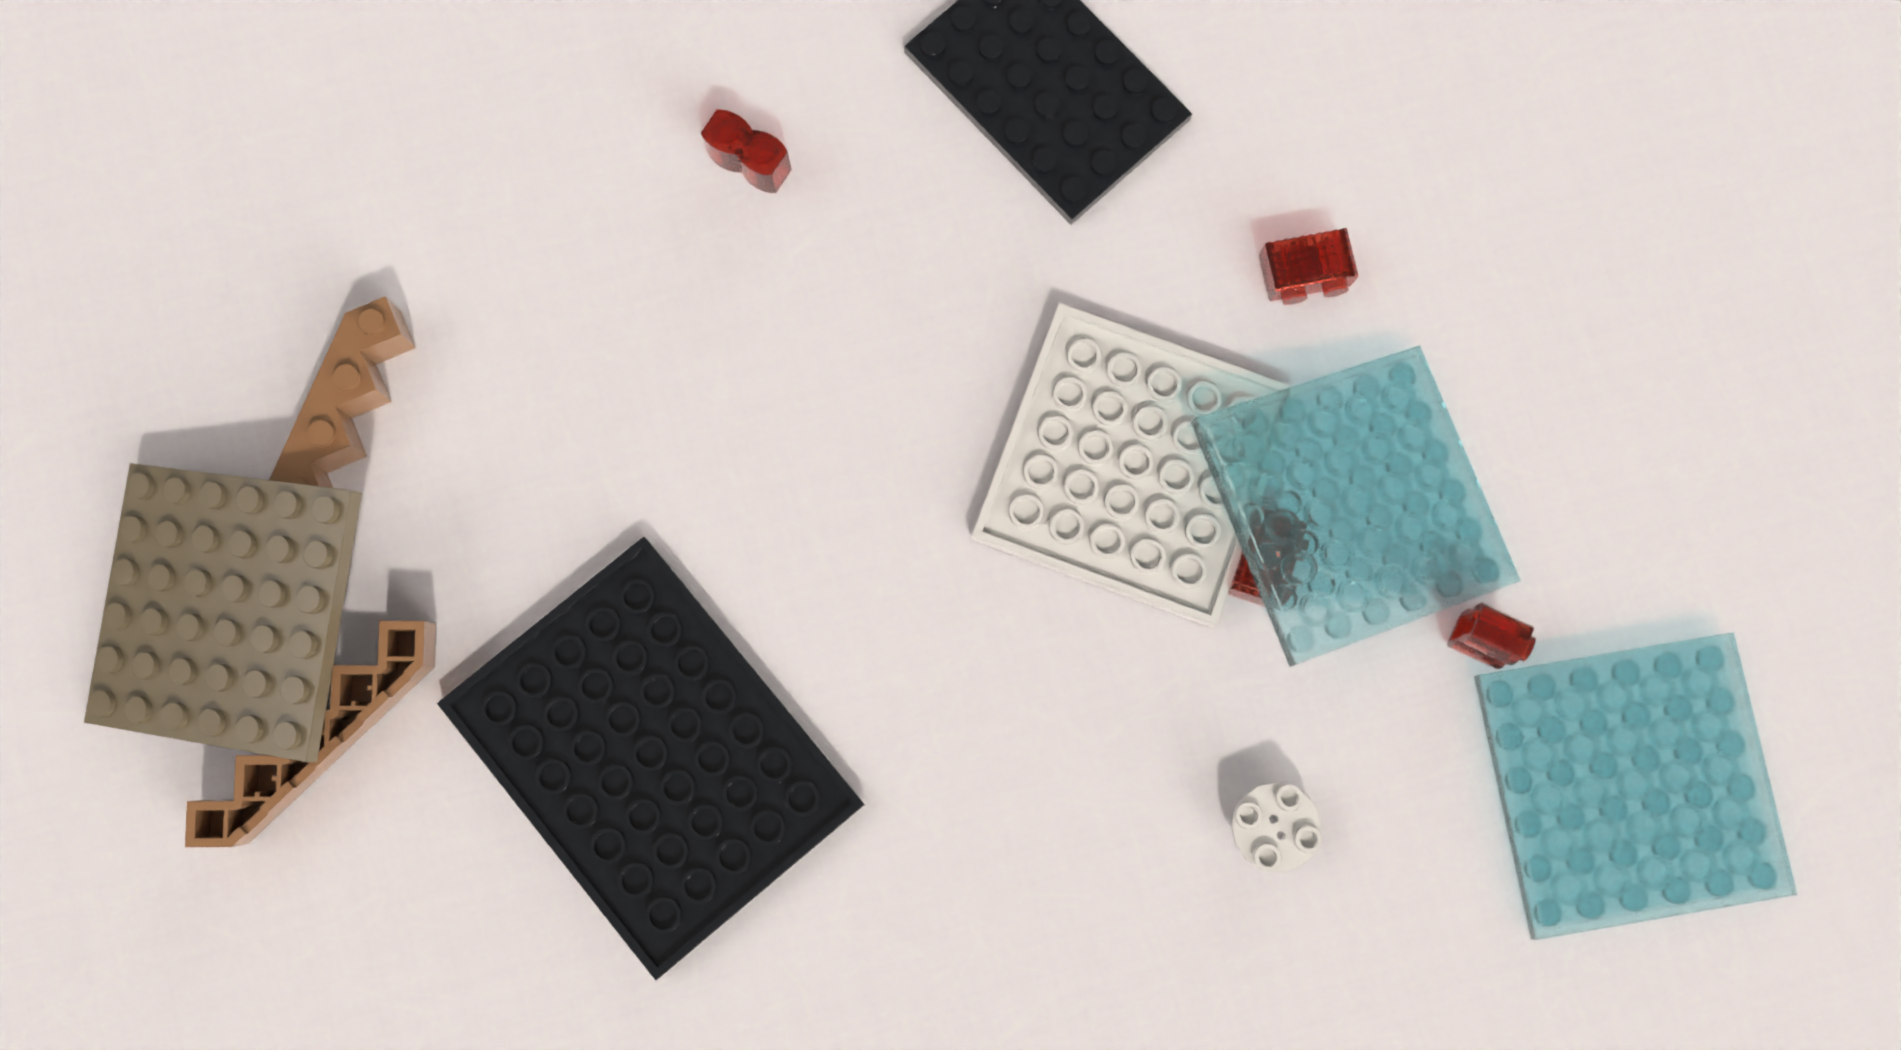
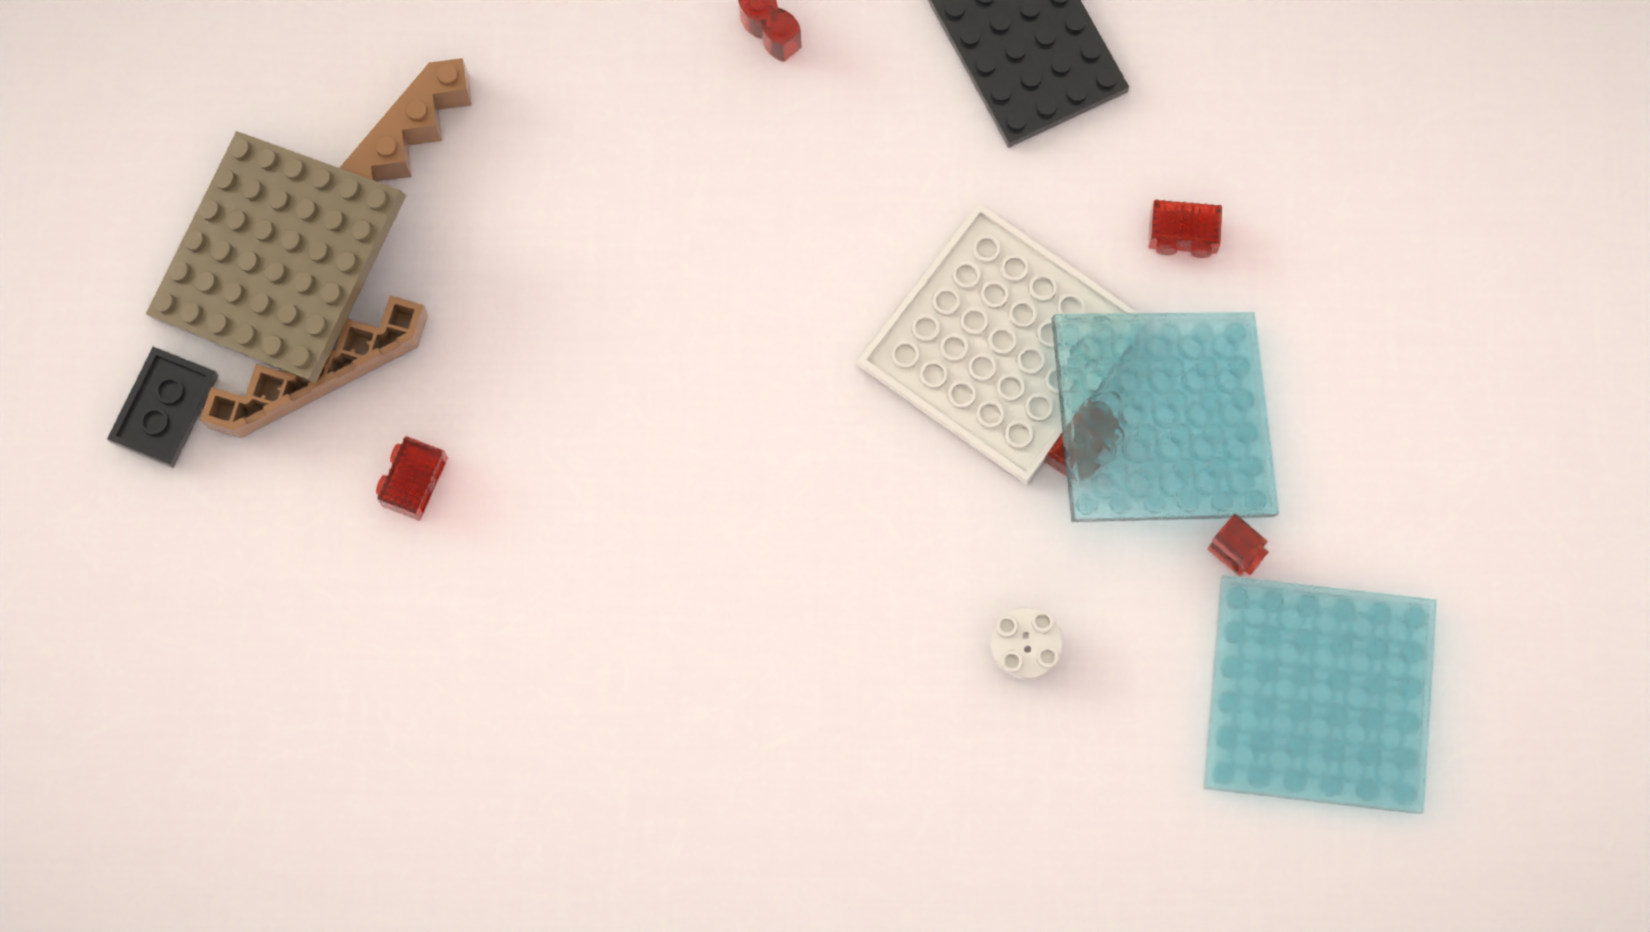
camera: 20 degrees right, 5 degrees down
(137, 835) = (162, 407): none -> black plate
(472, 836) = (411, 478): none -> clear red brick
(650, 757) = (563, 457): black plate -> none

